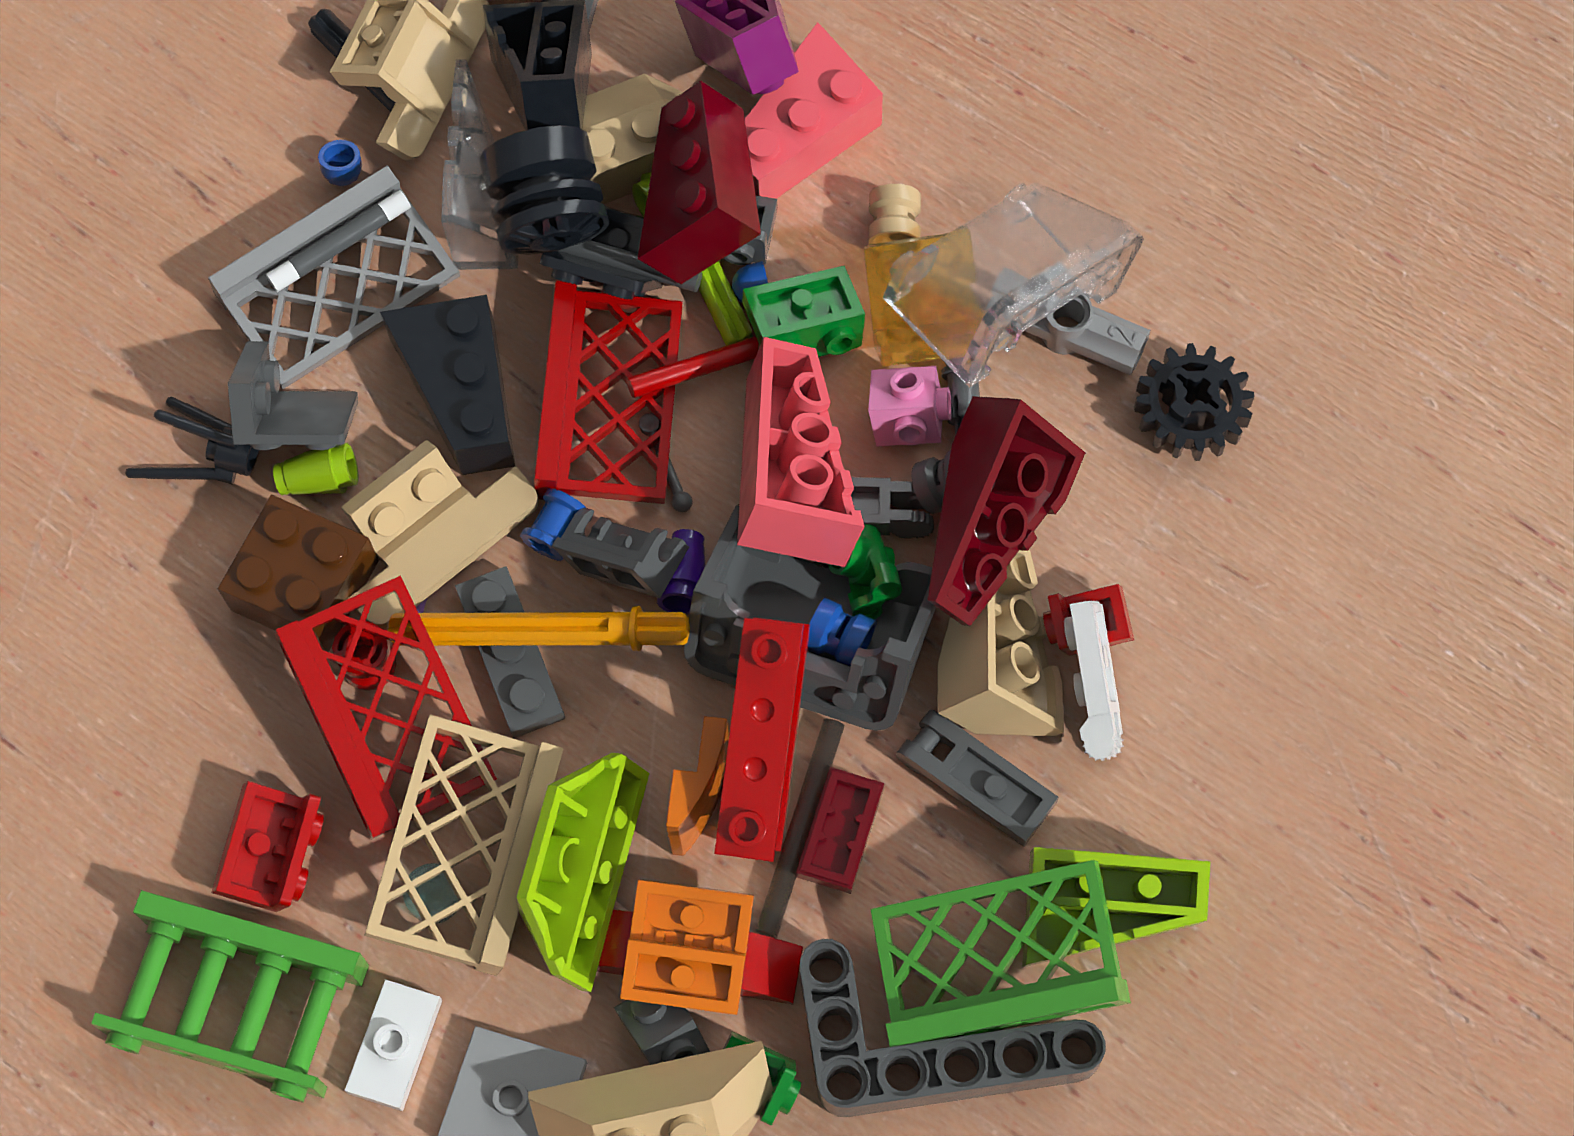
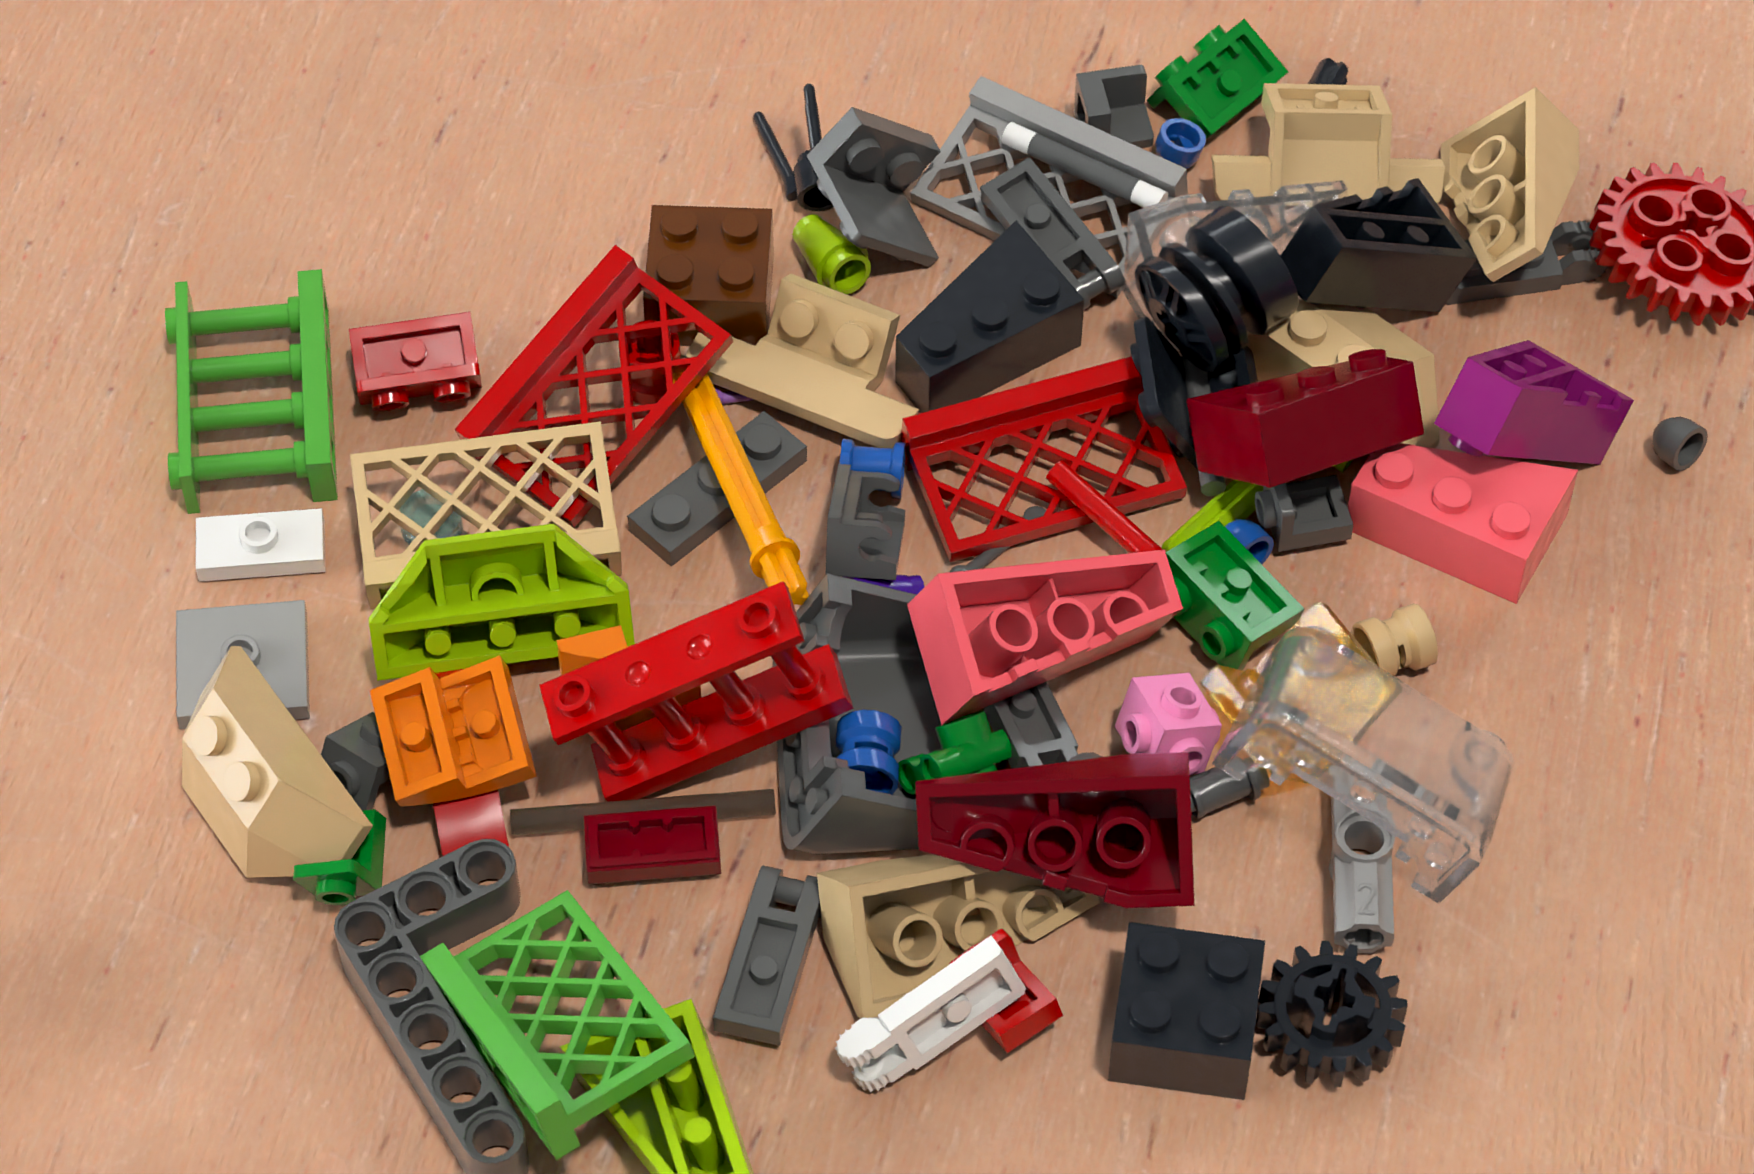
camera: 65 degrees right, 15 degrees down
(277, 198) = (1115, 103): none -> dark grey panel
(287, 106) = (1220, 79): none -> green bracket
(359, 296) = (1038, 207): none -> dark grey plate
(1155, 498) = (1186, 1011): none -> black brick

